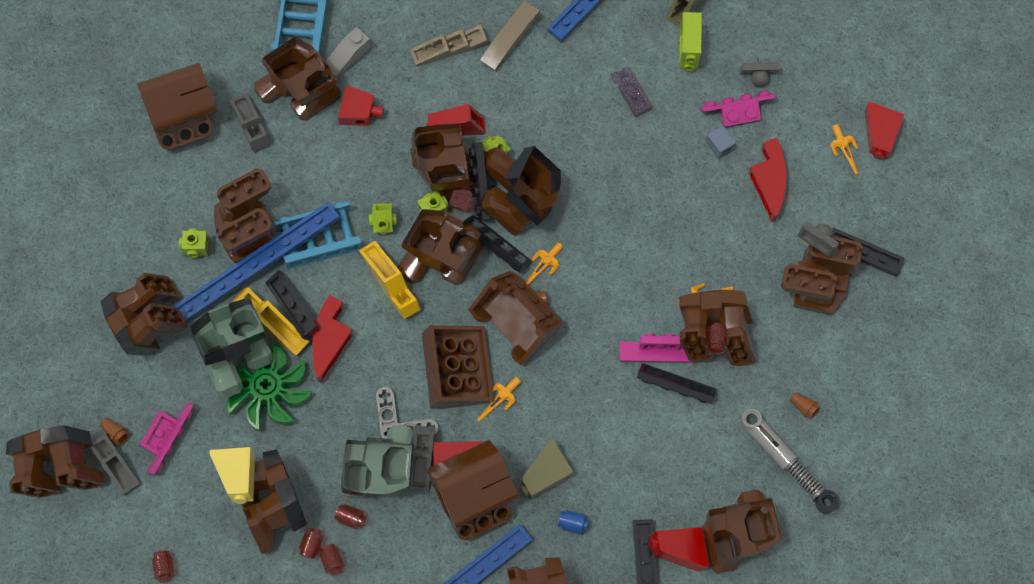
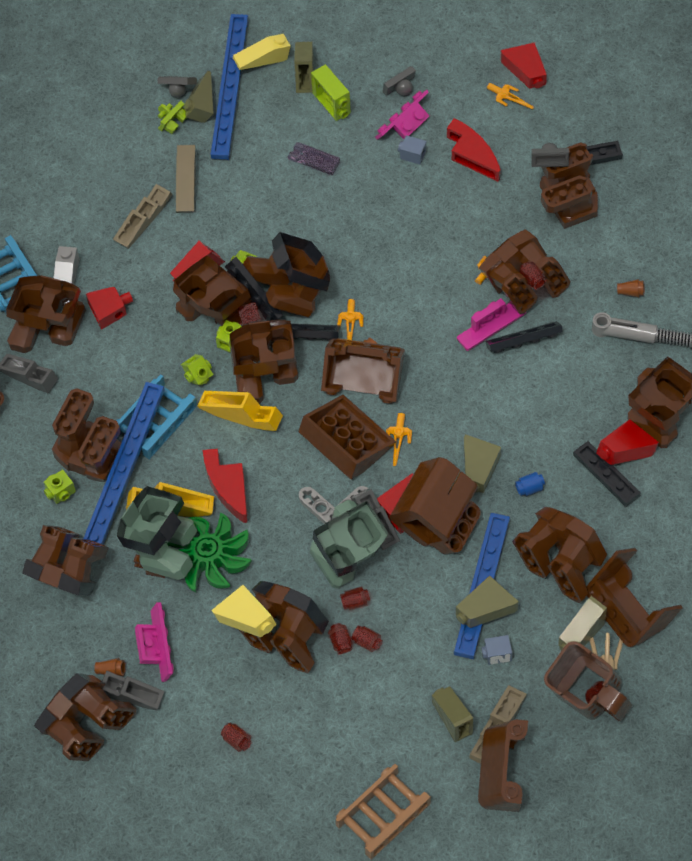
camera: 30 degrees left, 10 degrees down
(292, 305) = (178, 477): black plate -> none

